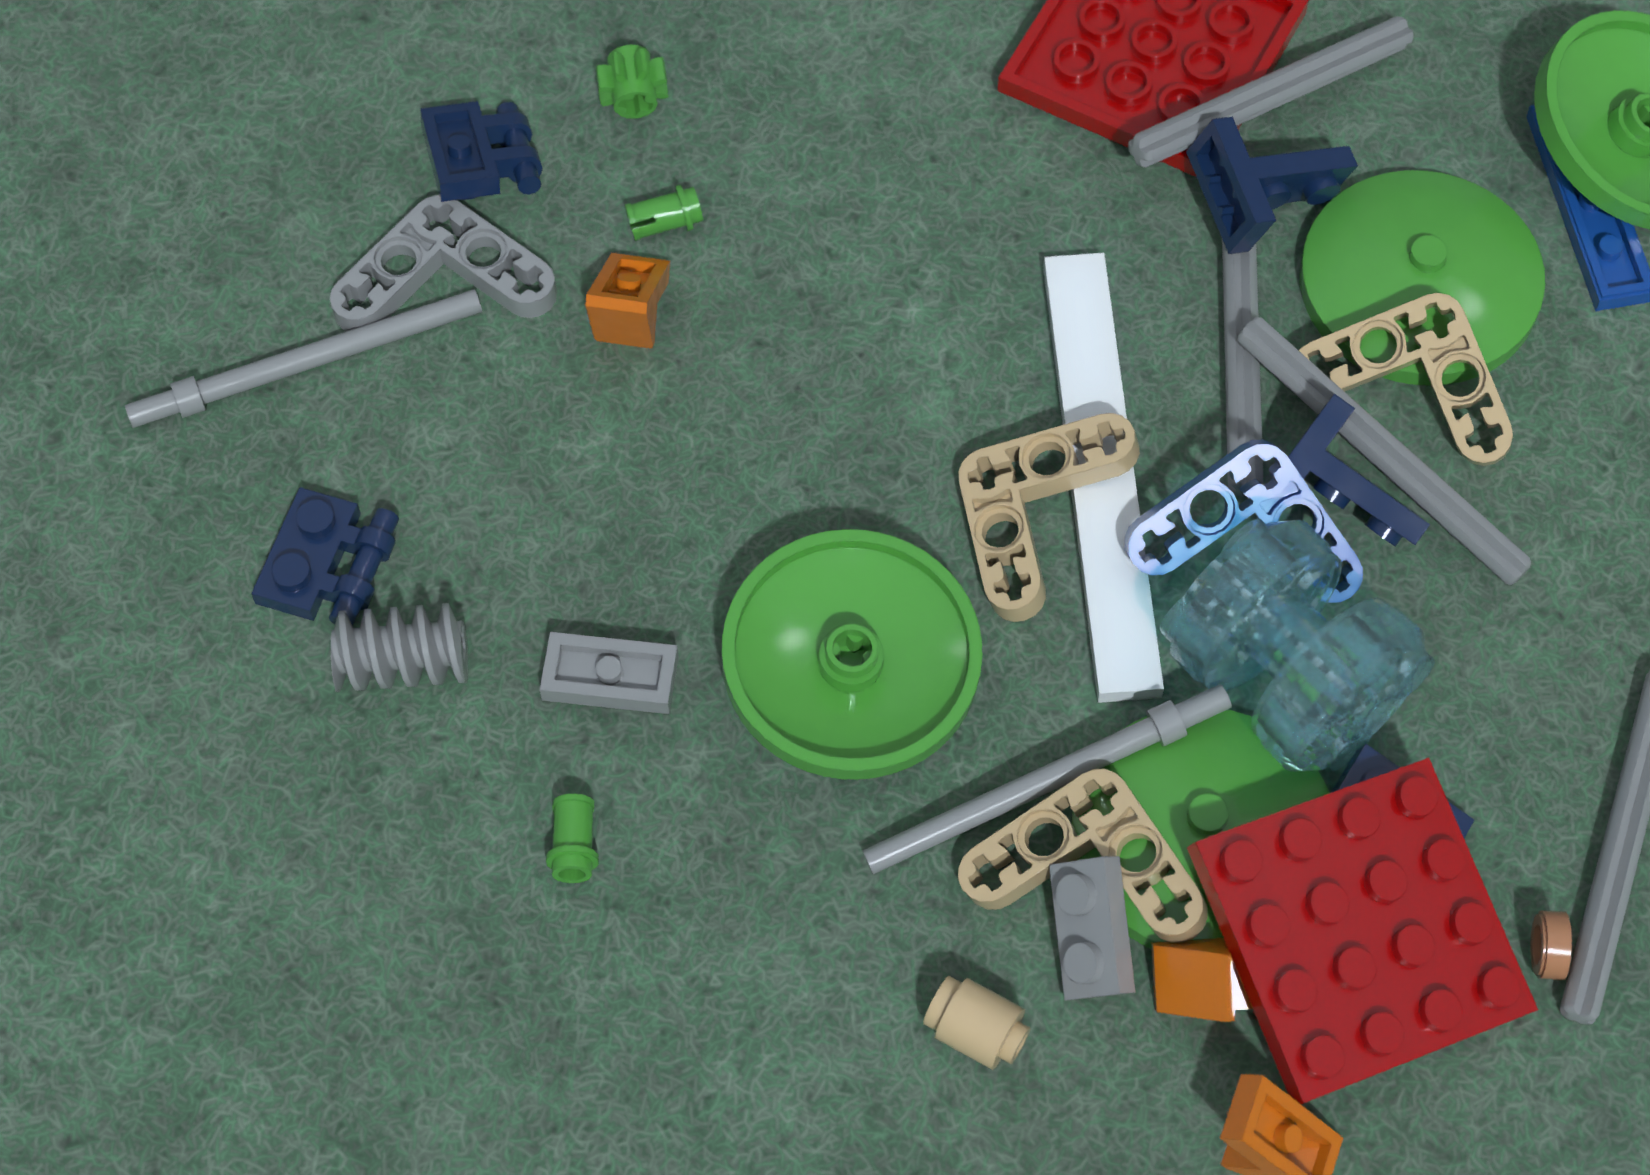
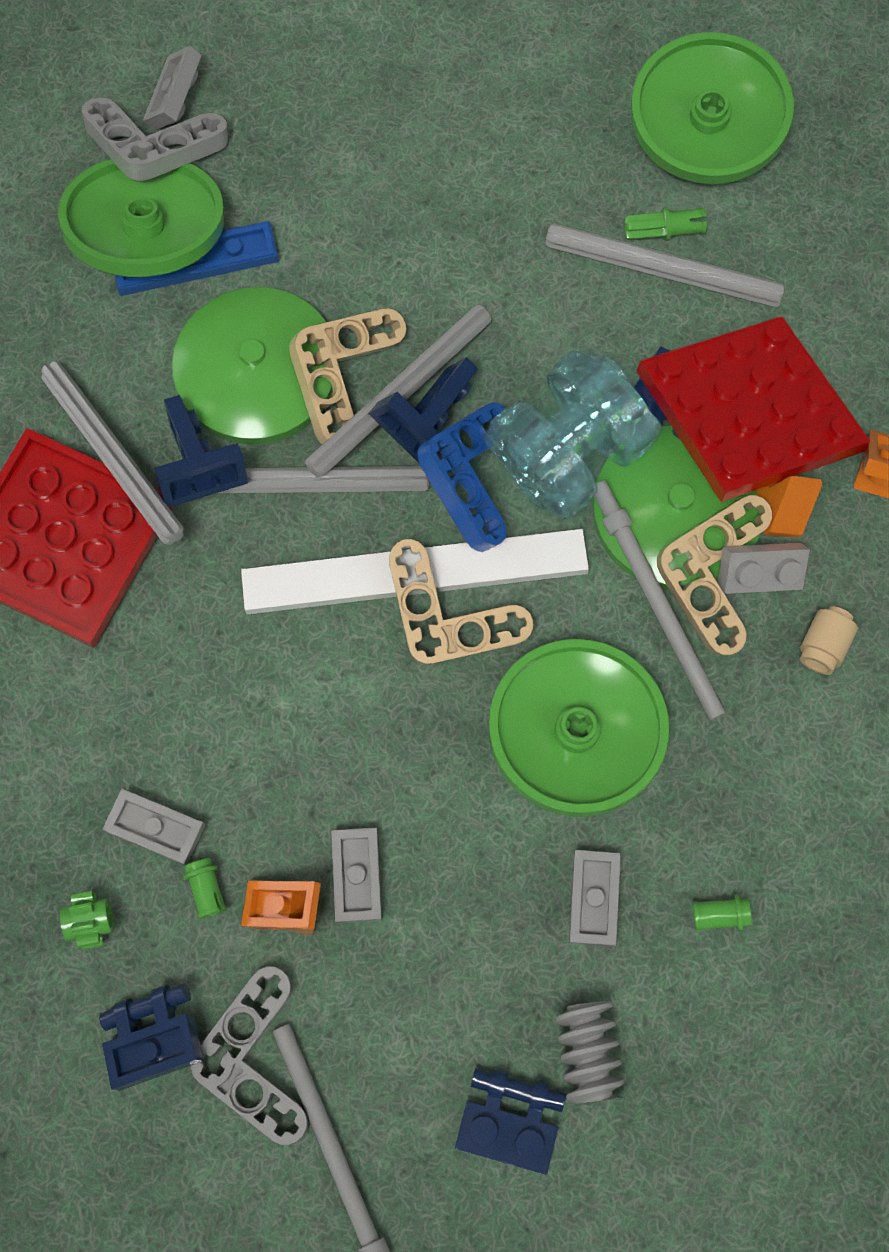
camera: 90 degrees left, 10 degrees up
(665, 383) = (356, 875): none -> light grey plate
(747, 156) = (154, 827): none -> light grey plate
(1551, 945) = (741, 305): nougat tile -> none

